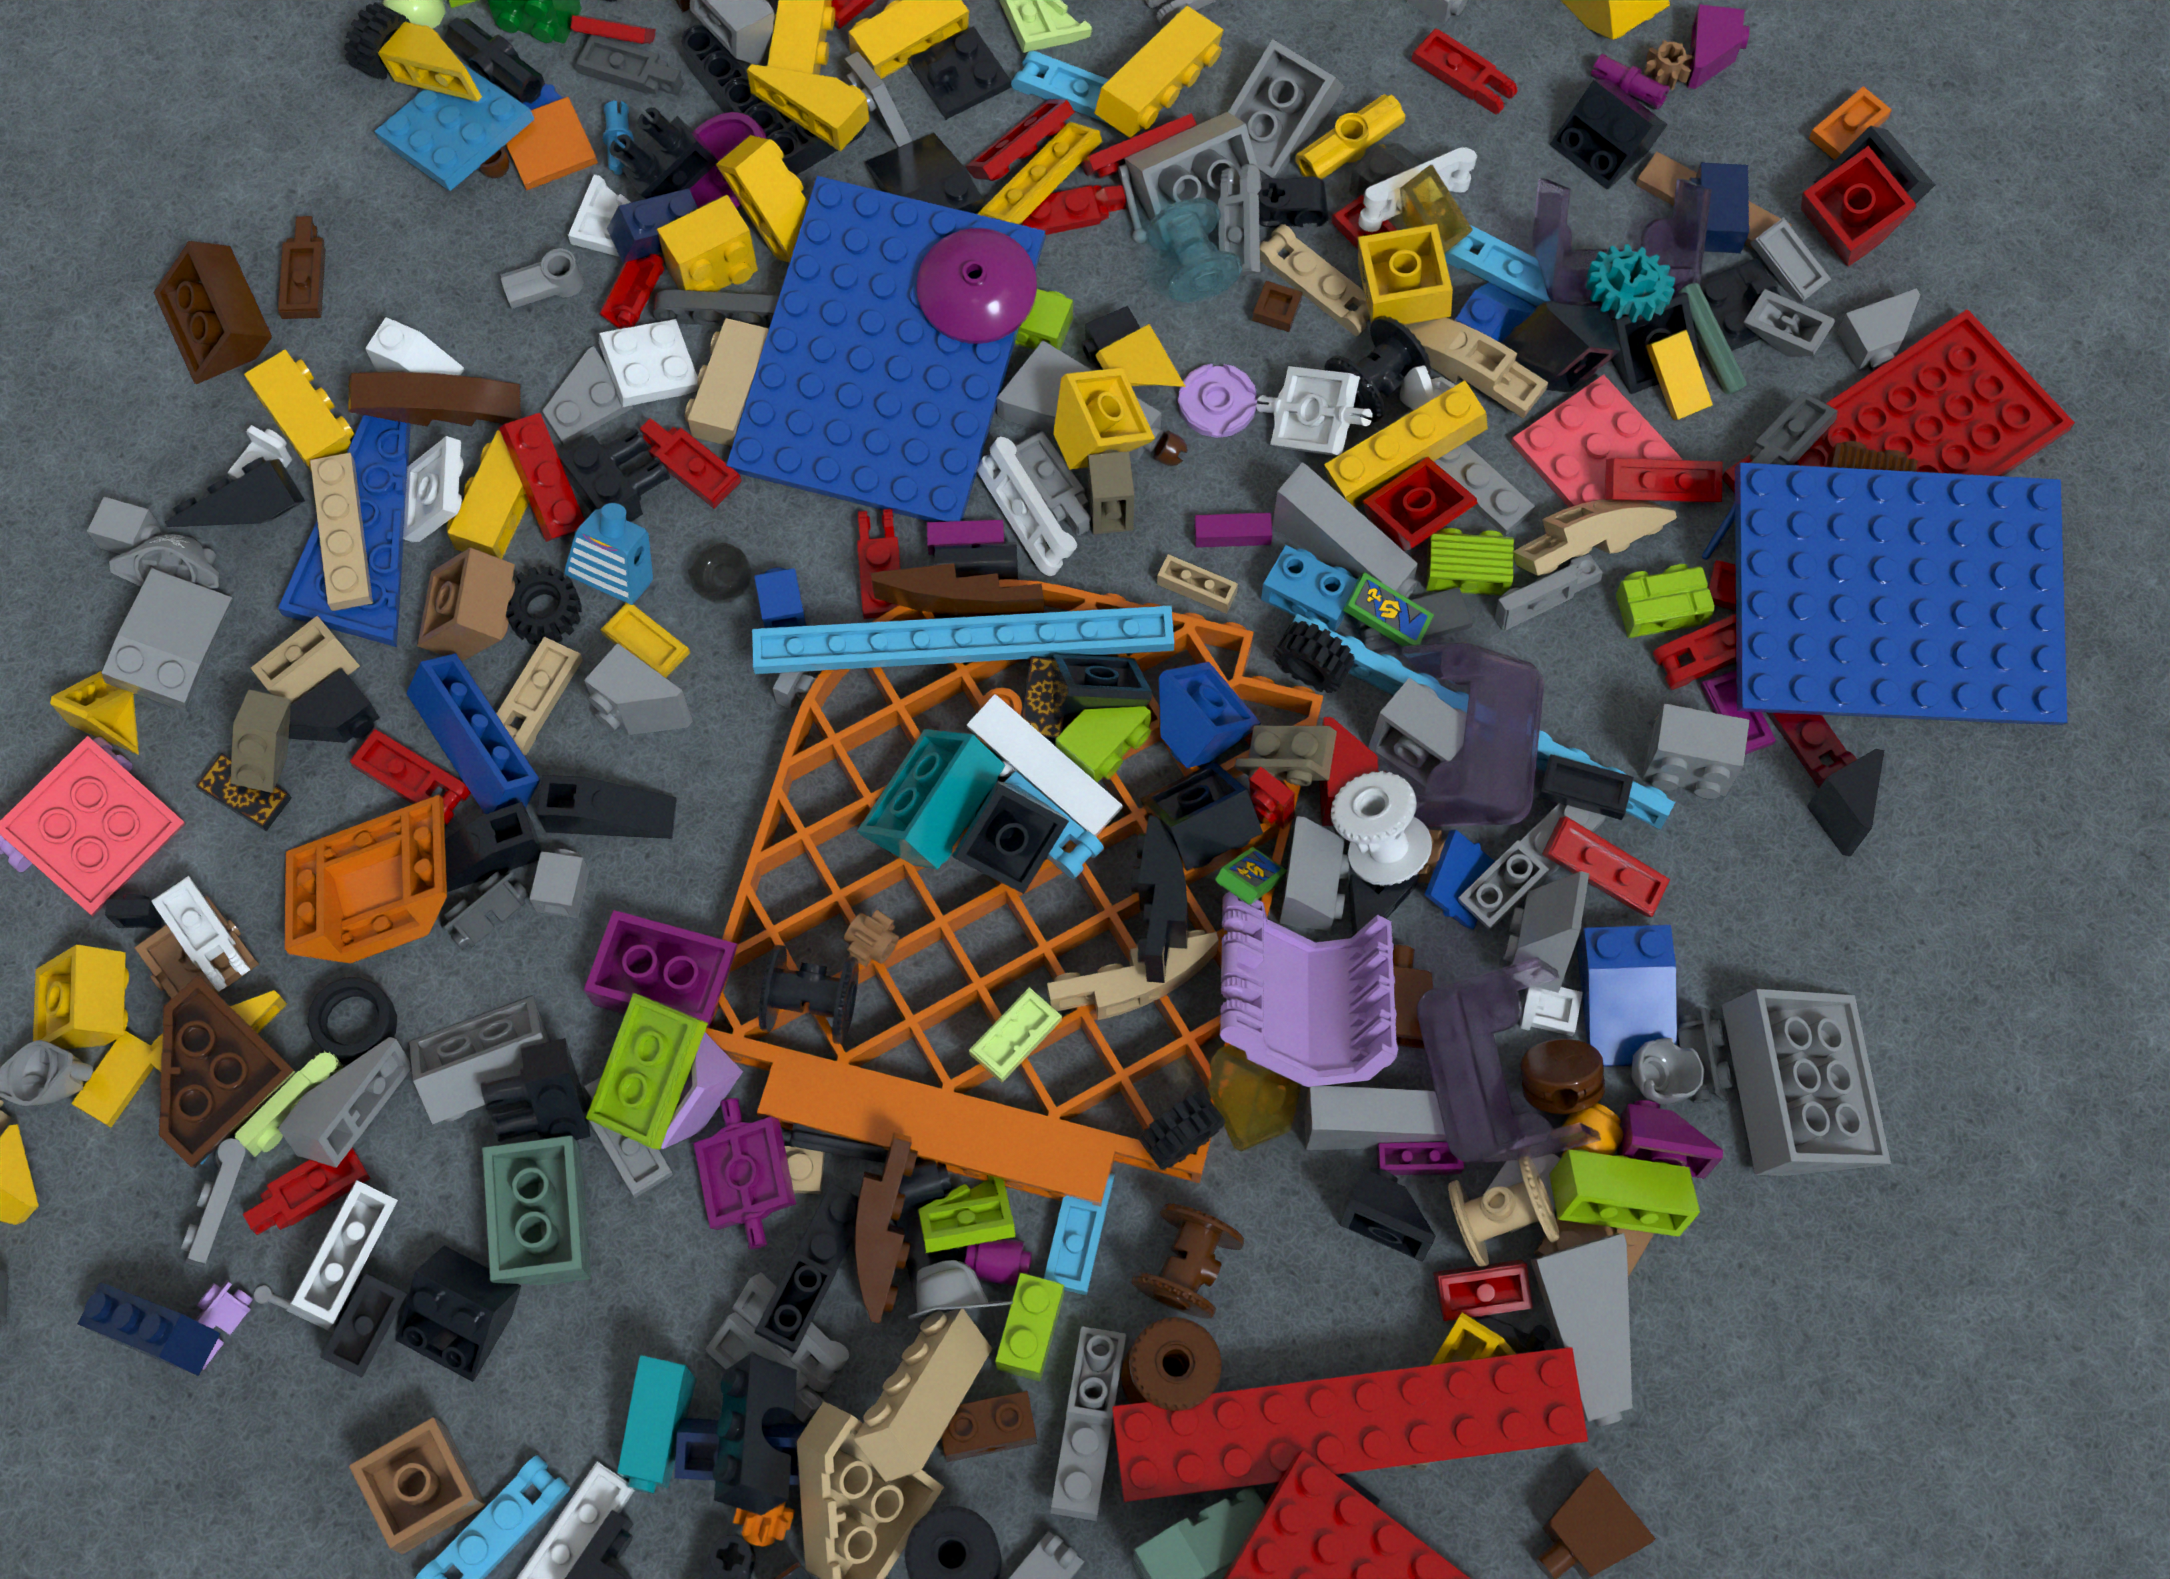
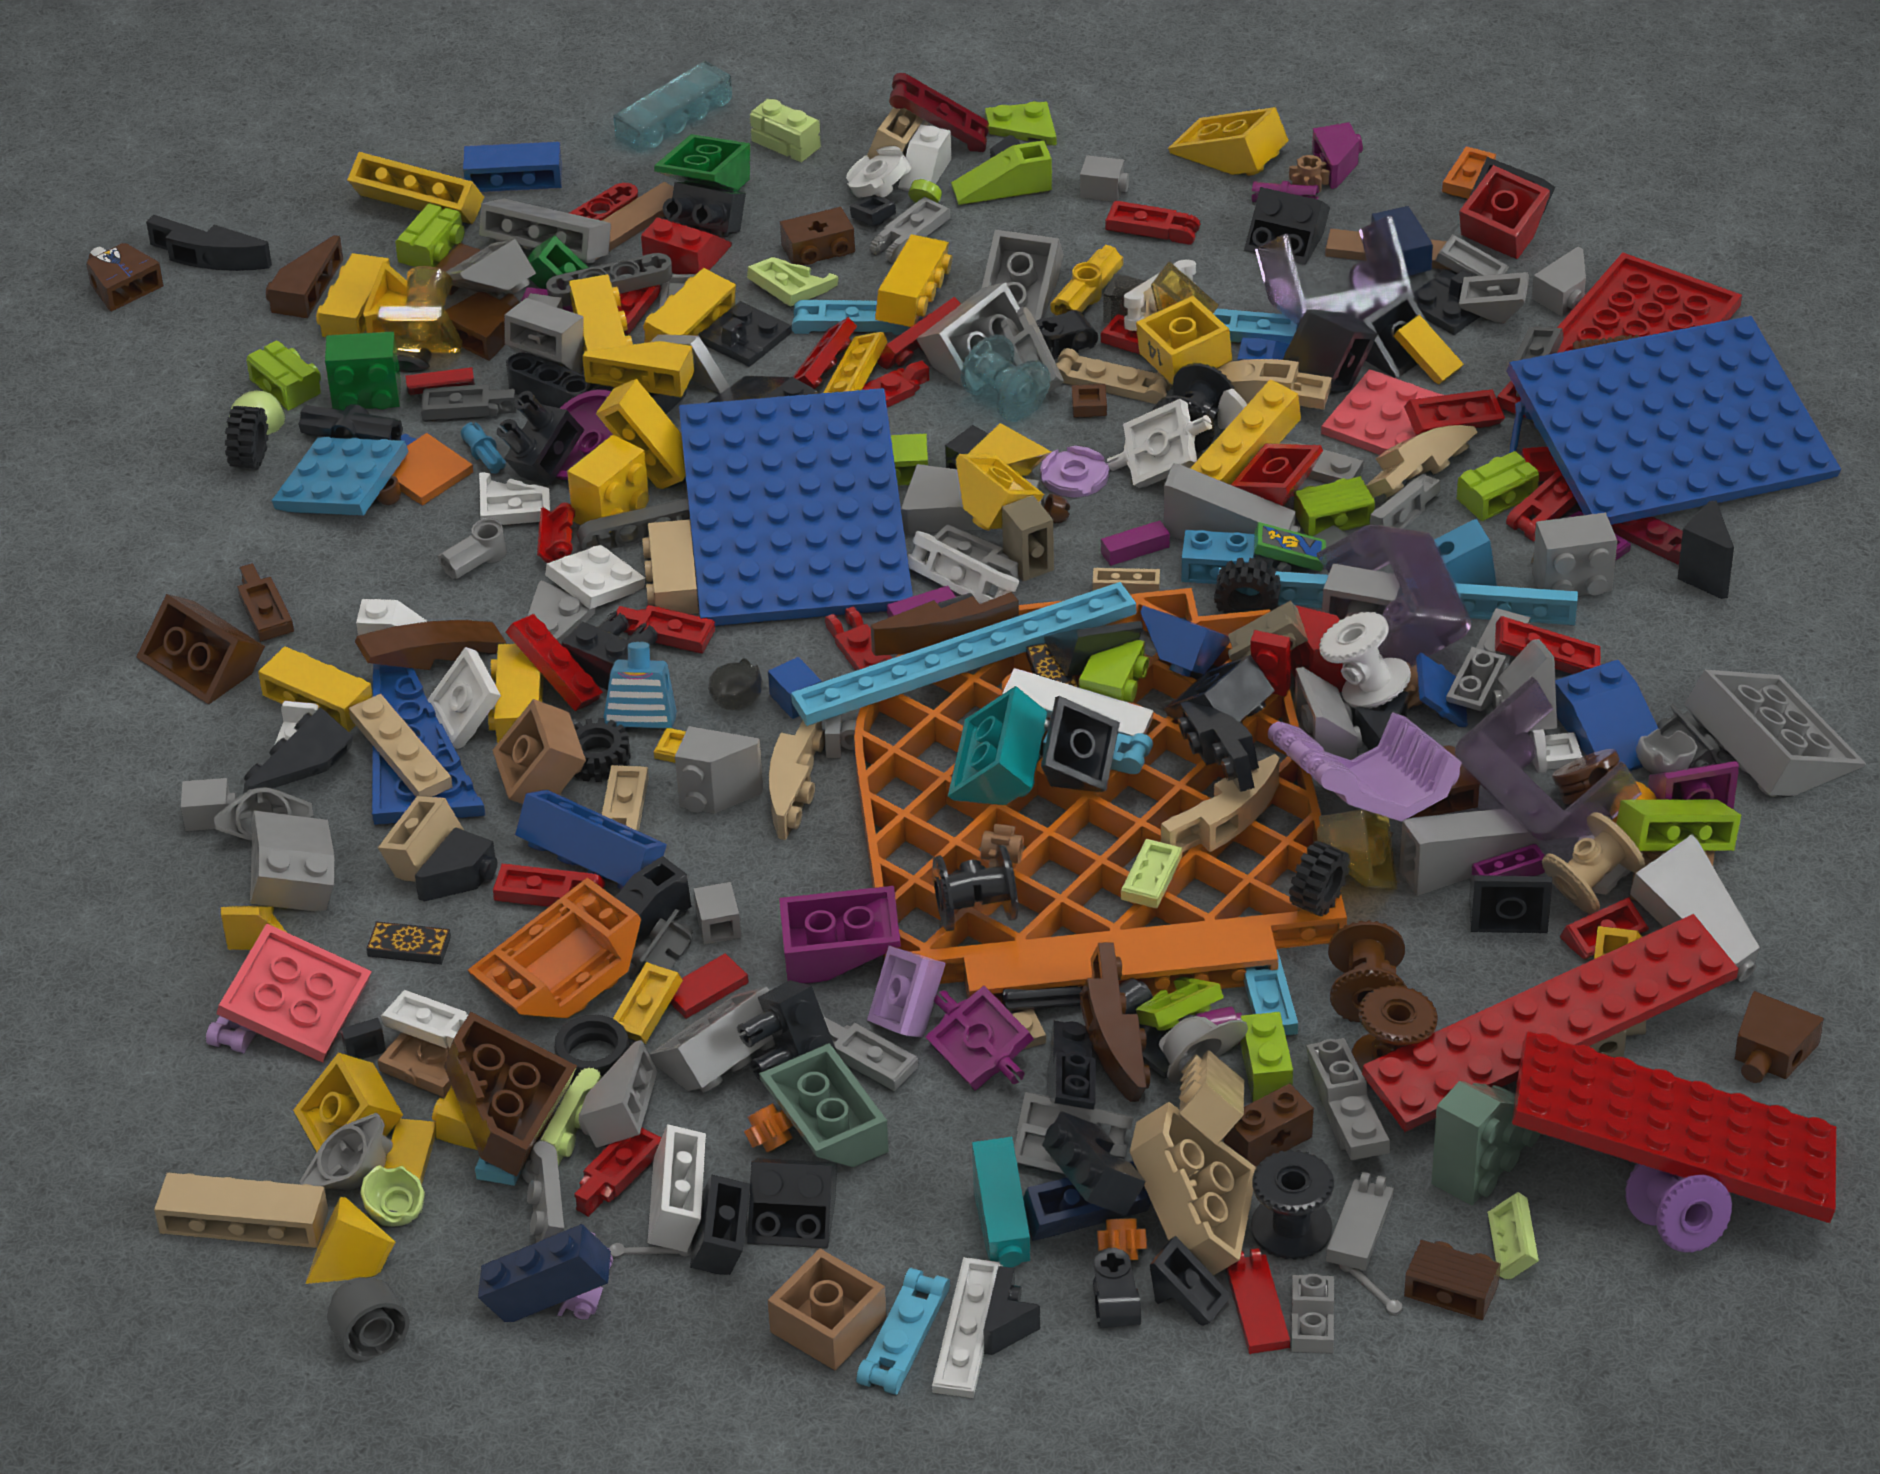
camera: 20 degrees left, 25 degrees down
(50, 1136) = (395, 1191): none -> yellowish green hair
(260, 741) = (416, 887): dark tan brick -> none
(423, 60) = (304, 434): yellow slope -> none
(431, 980) = (647, 1001): none -> yellow plate
(470, 1205) = (768, 1128): none -> orange gear
(509, 973) = (708, 985): none -> red tile
(603, 808) = (722, 853): black slope -> none
(636, 223) = (546, 481): dark blue brick -> none
(646, 1071) = (868, 980): lime tile -> none
(712, 730) = (790, 775): none -> tan slope
(980, 307) = (849, 435): magenta dish -> none
(1139, 234) = (919, 353): light grey hinge -> none
(1250, 875) = (1279, 713): tile -> none
(1572, 705) = (1468, 554): none -> dark azure torso
(1586, 787) = (1505, 599): black tile -> none
(1630, 283) = (1362, 291): teal gear -> none
(1713, 341) = (1446, 326): sand green axle -> none

